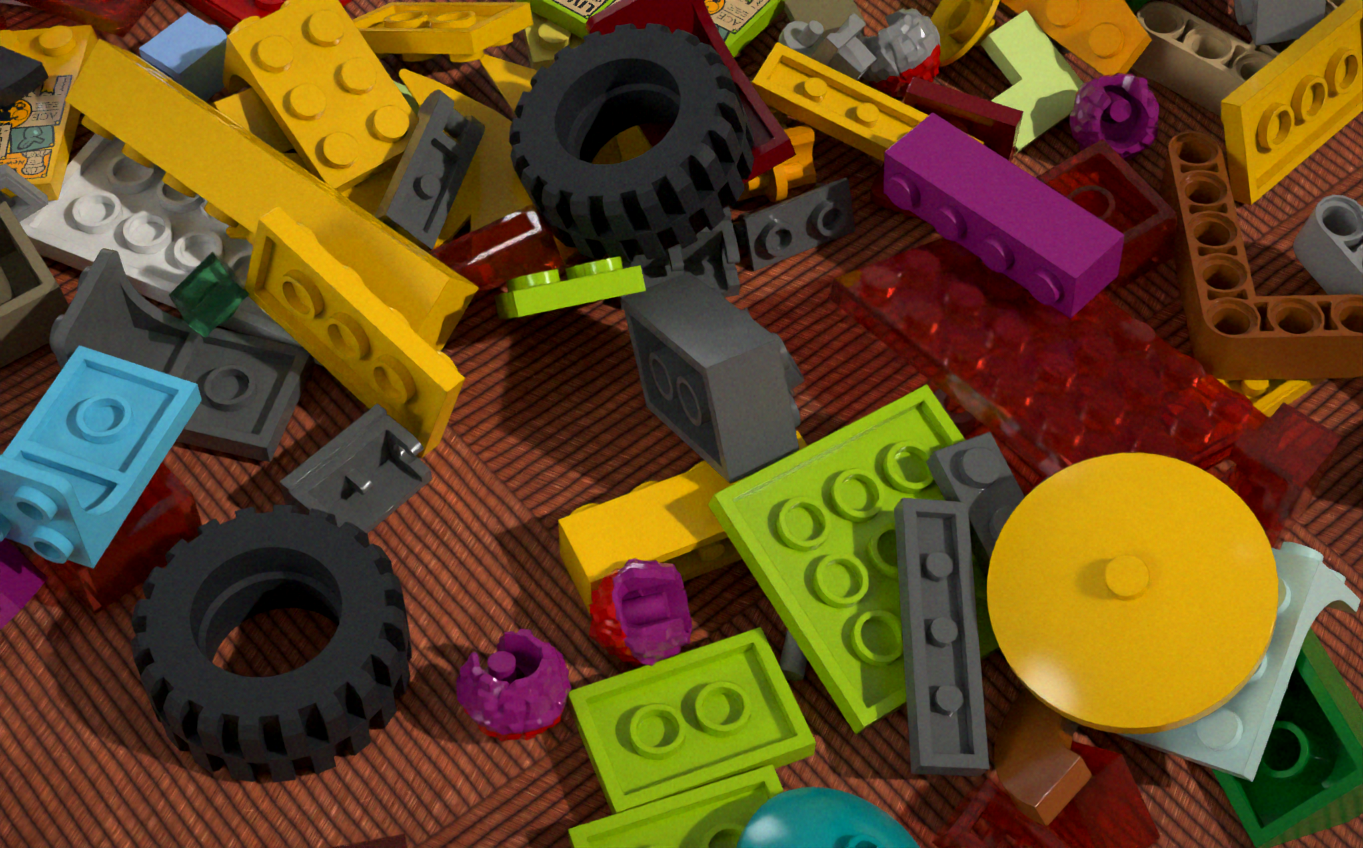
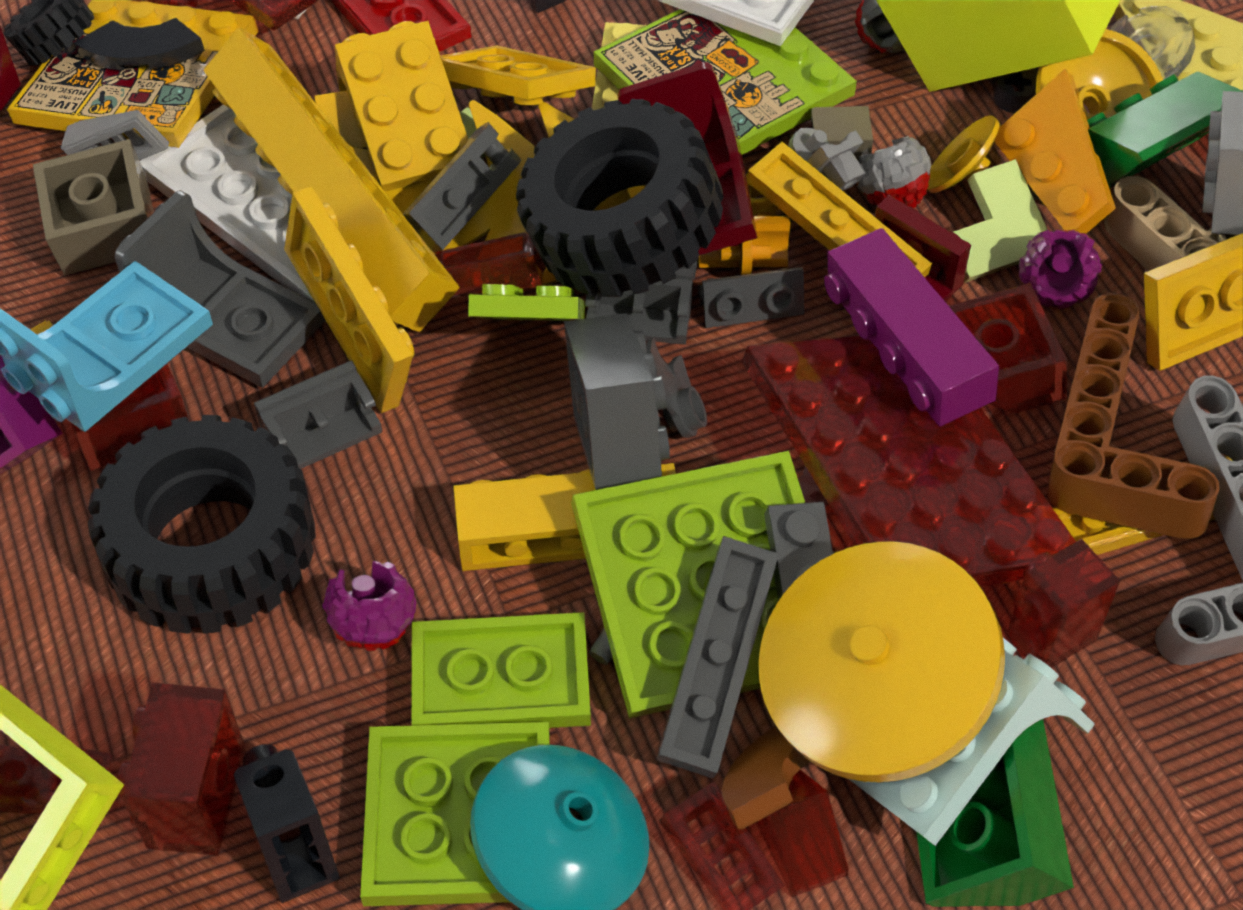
camera: 20 degrees right, 0 degrees up
(189, 54) = (313, 59): light blue brick -> none
(209, 295) = (257, 246): clear green plate -> none
(641, 612) = (492, 575): magenta piece -> none

